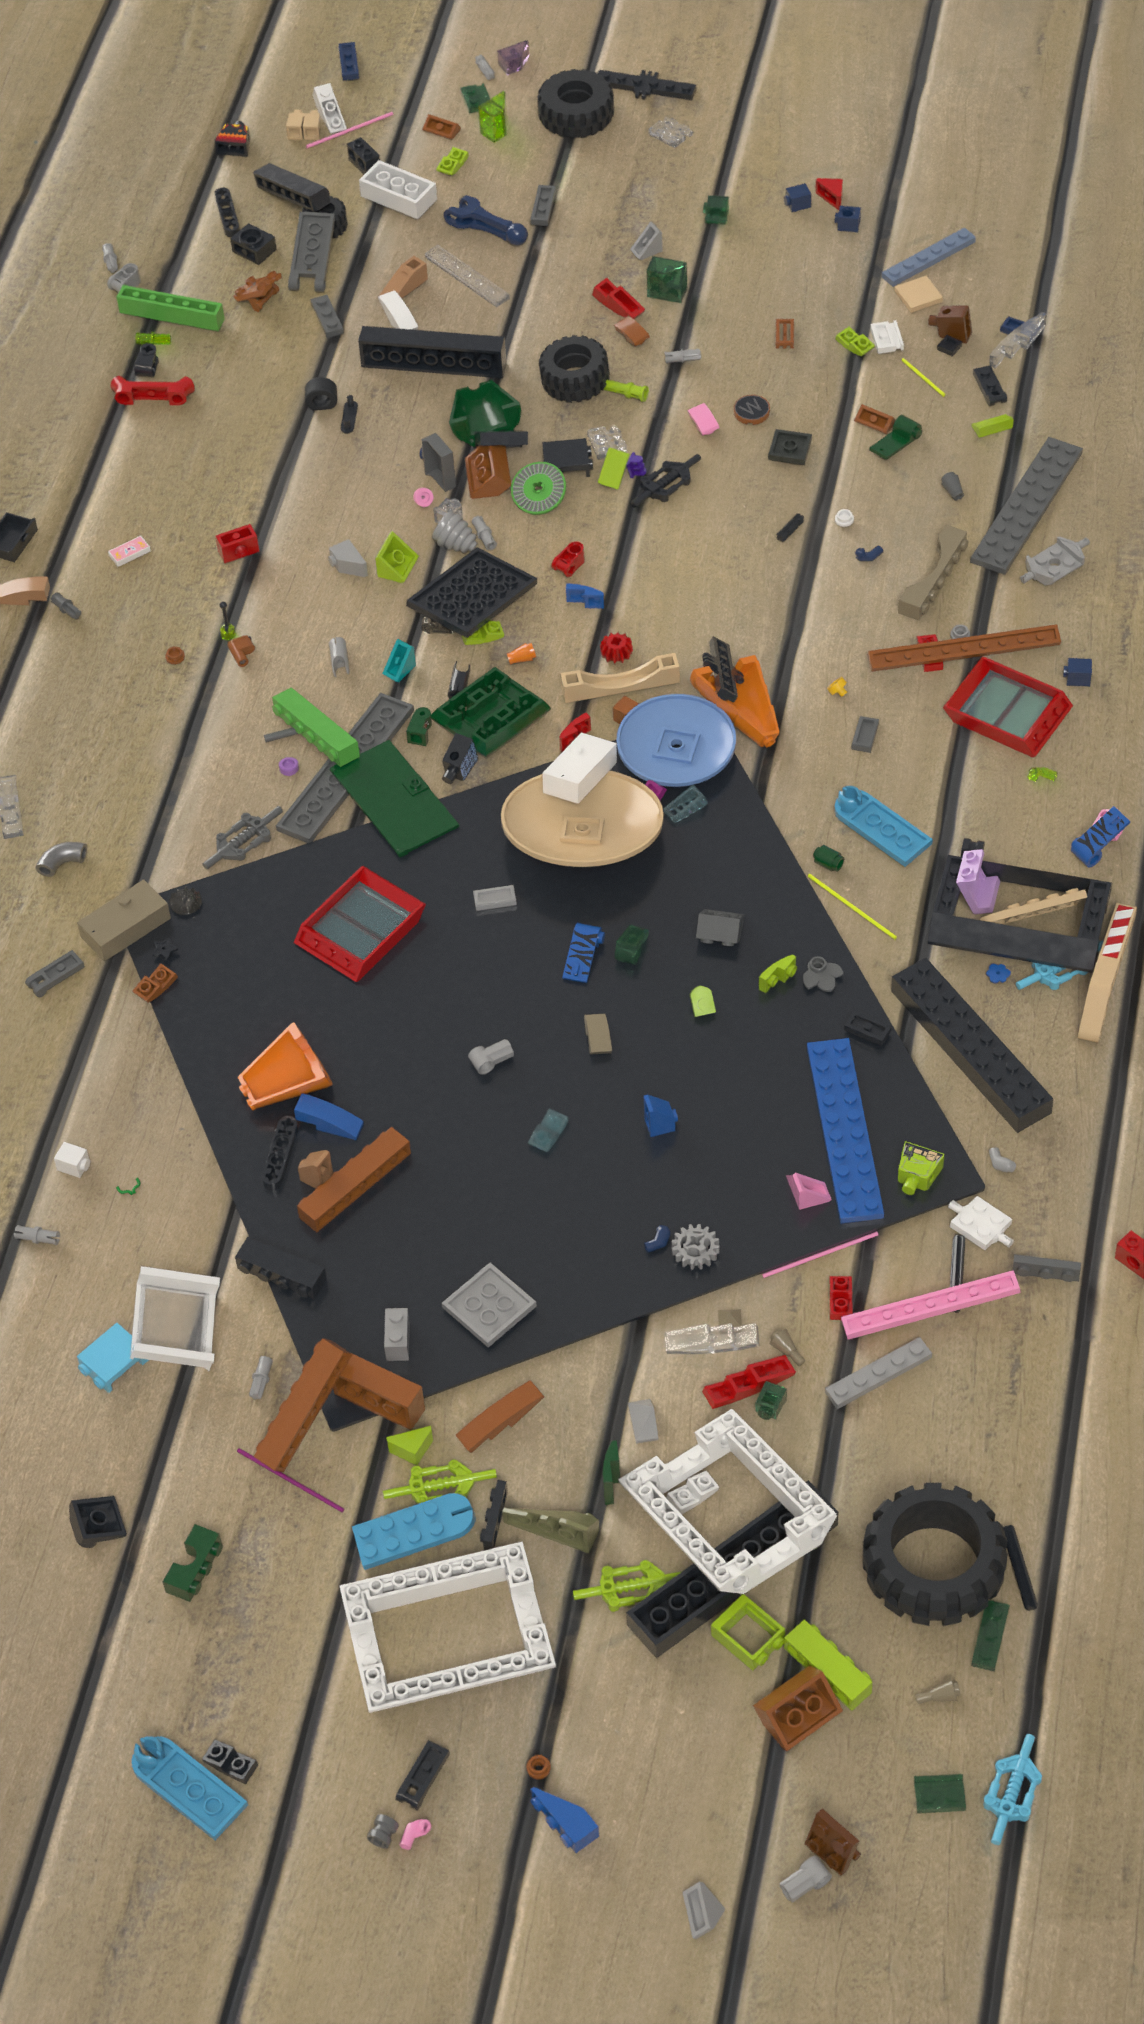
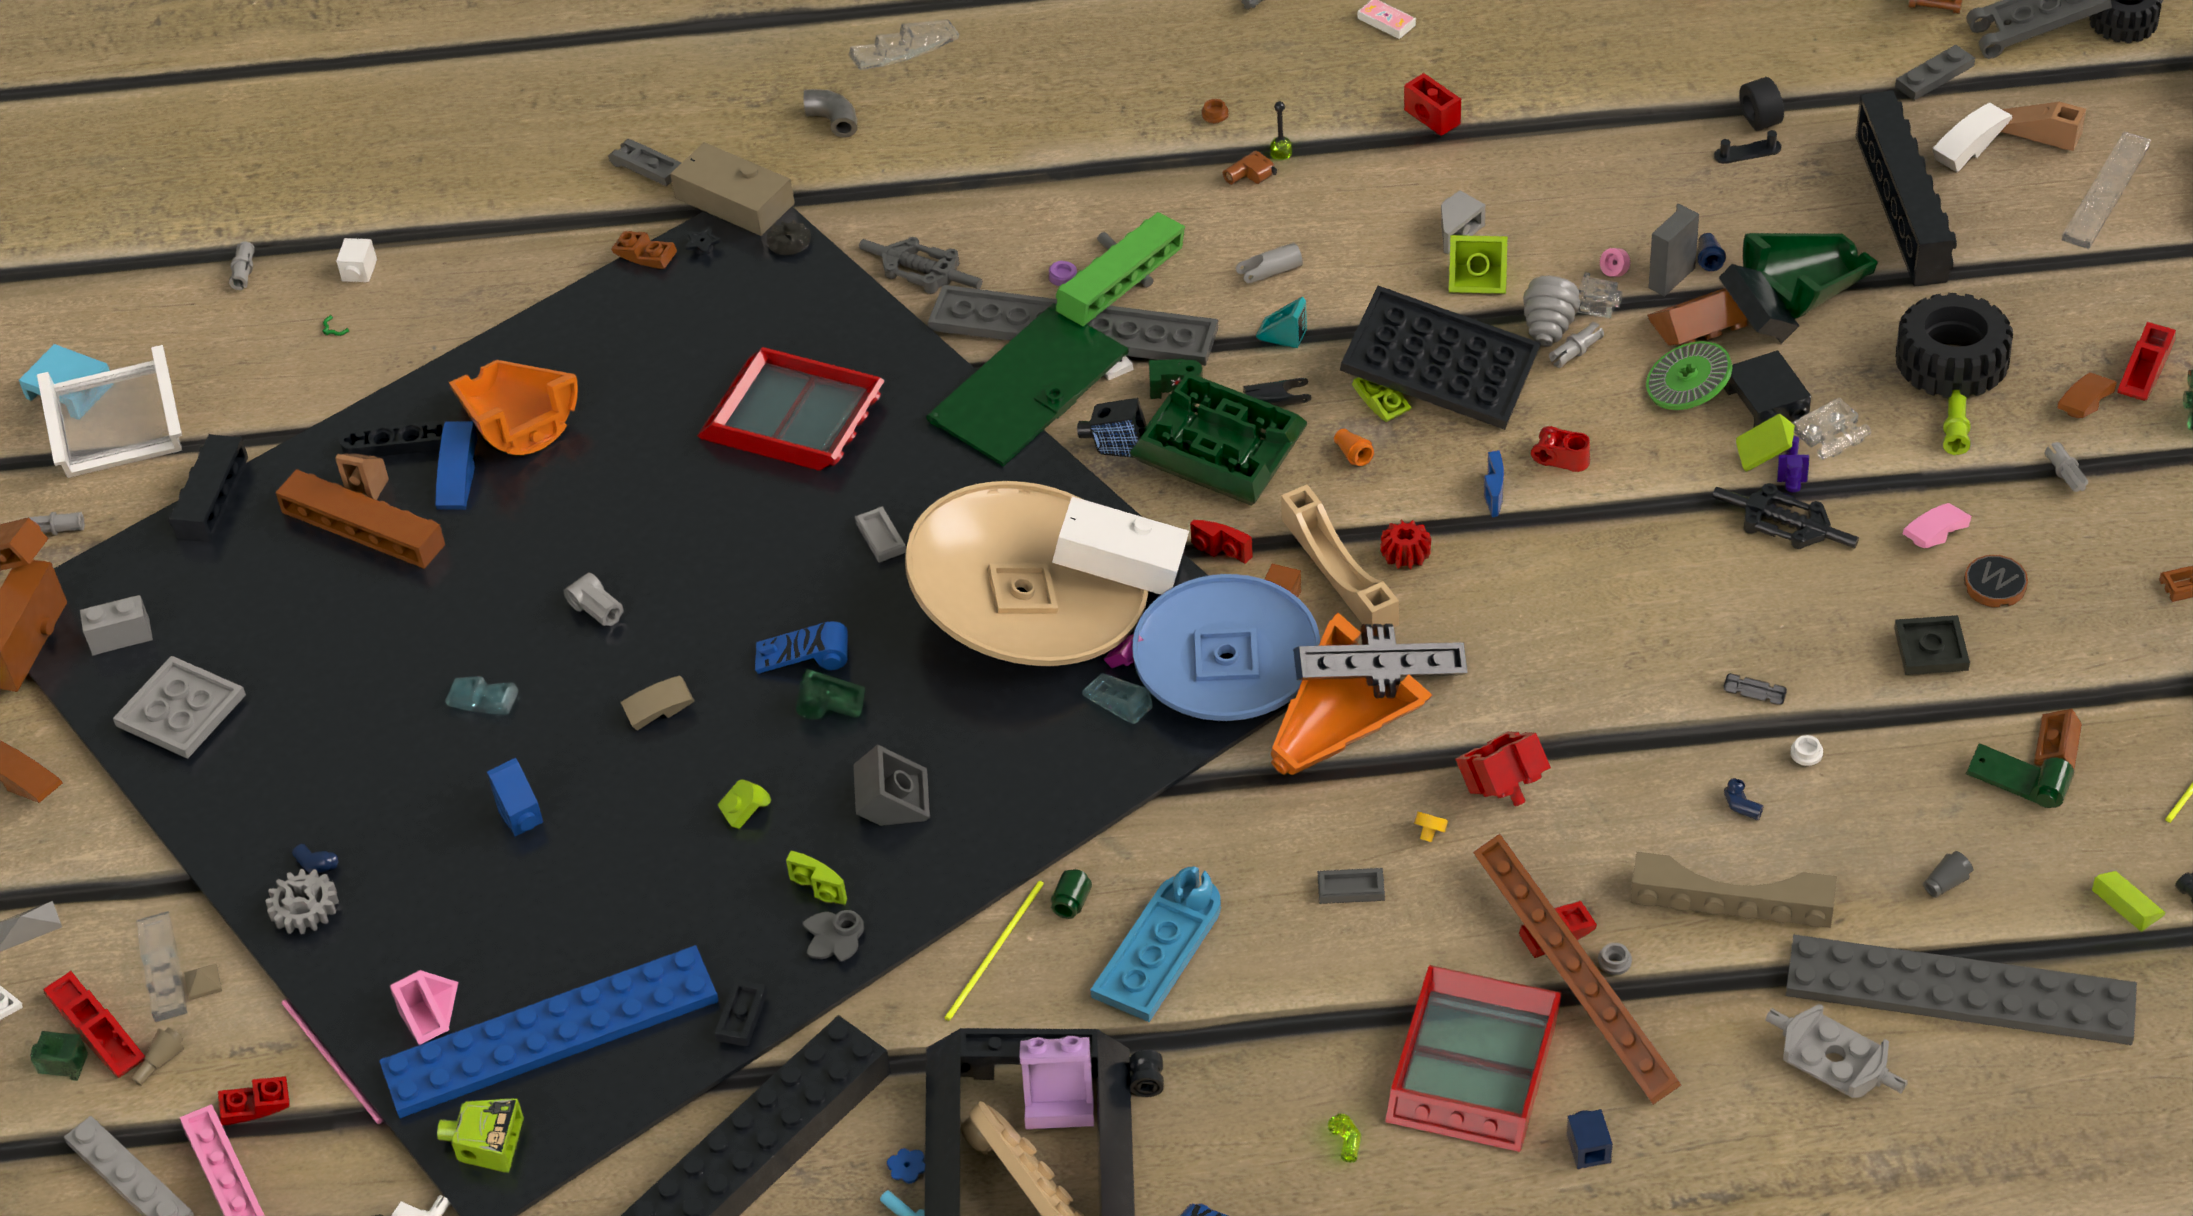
camera: 75 degrees right, 5 degrees down
(815, 639) = (1503, 764): none -> red brick

